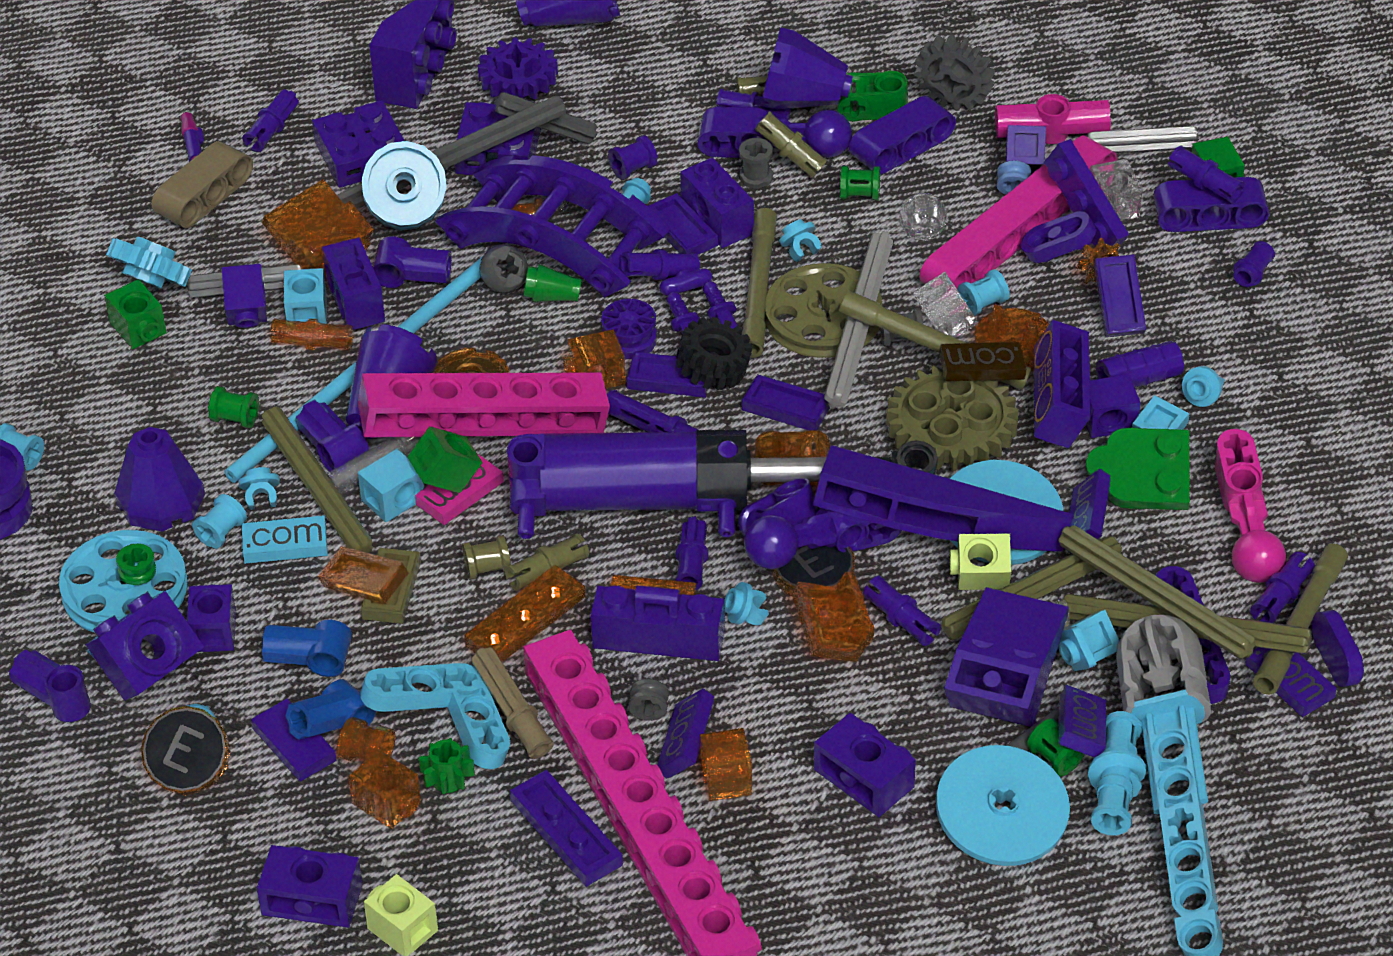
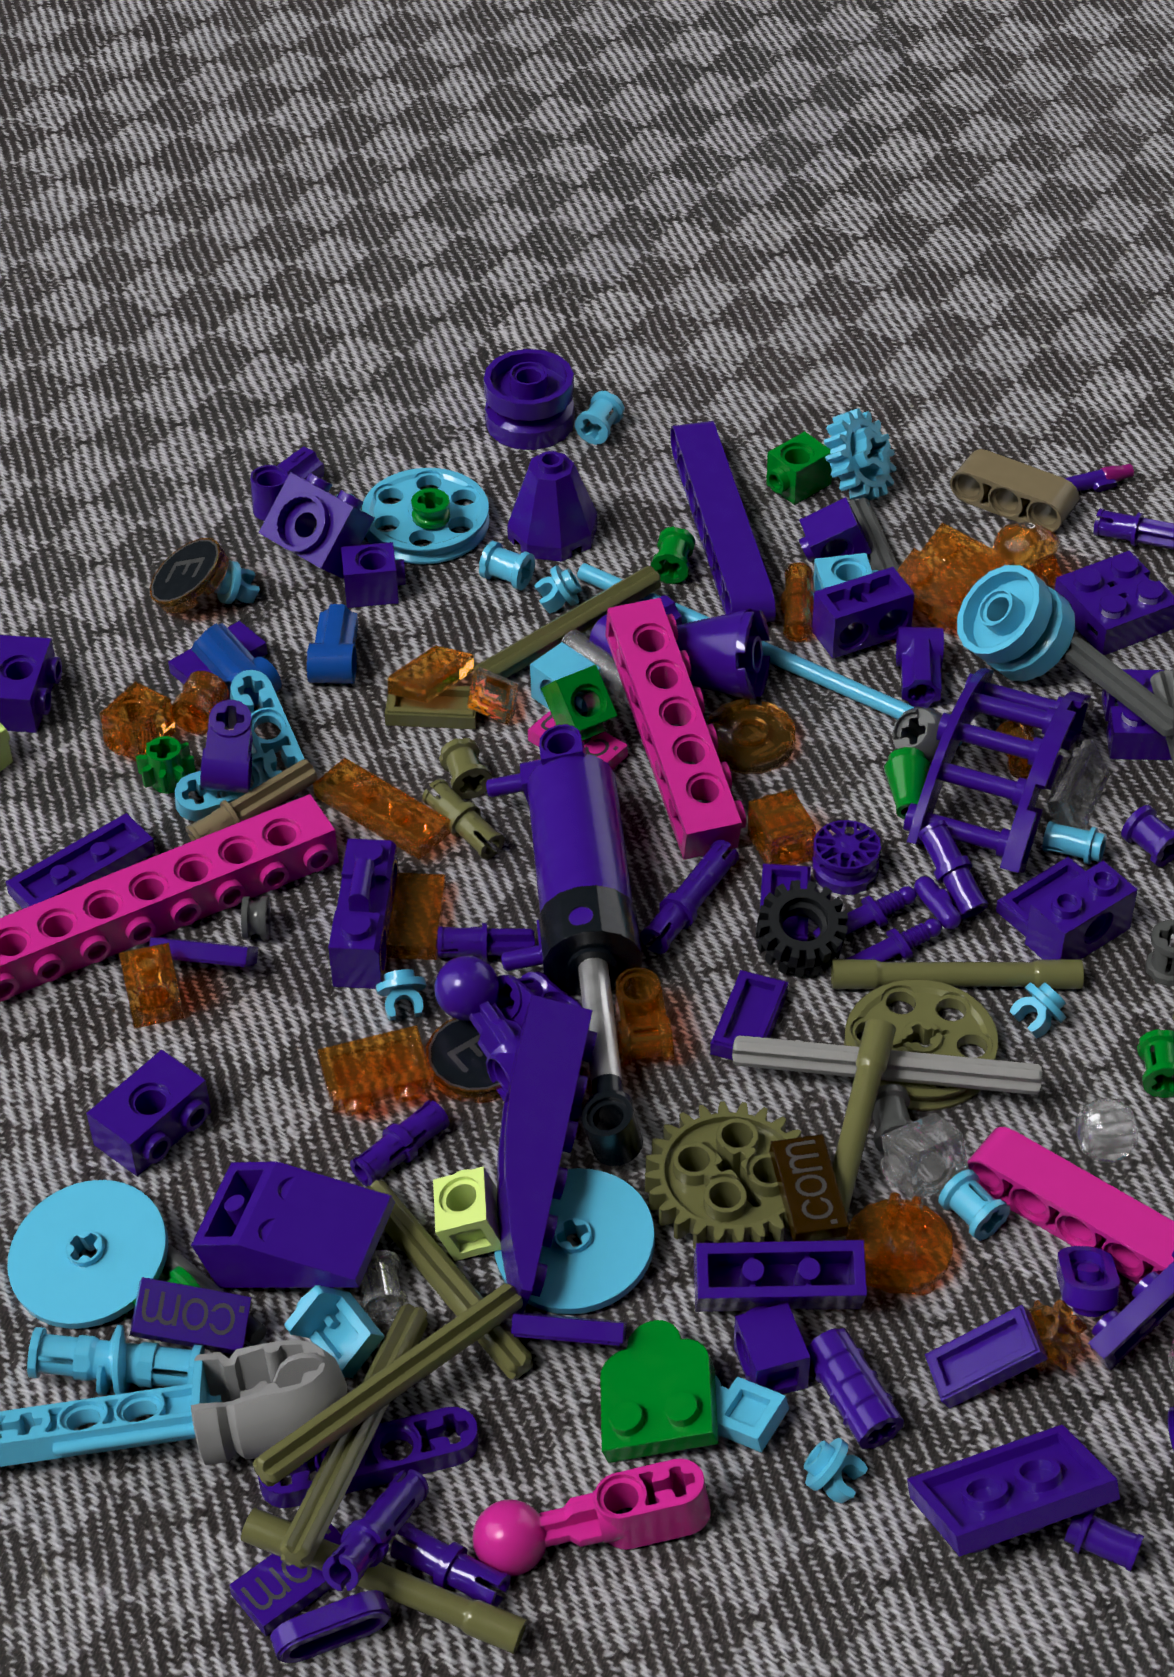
camera: 85 degrees right, 0 degrees up
(193, 372) = (721, 520): none -> dark purple beam
(284, 539) = (491, 618): medium azure tile -> none
(295, 174) = (1031, 548): none -> clear orange piece
(395, 537) = (492, 695): none -> clear orange tile
(470, 697) = (228, 753): none -> dark purple piece
(1227, 293) = (1012, 1490): none -> dark purple plate
(1288, 606) = (368, 1539): none -> dark purple pin

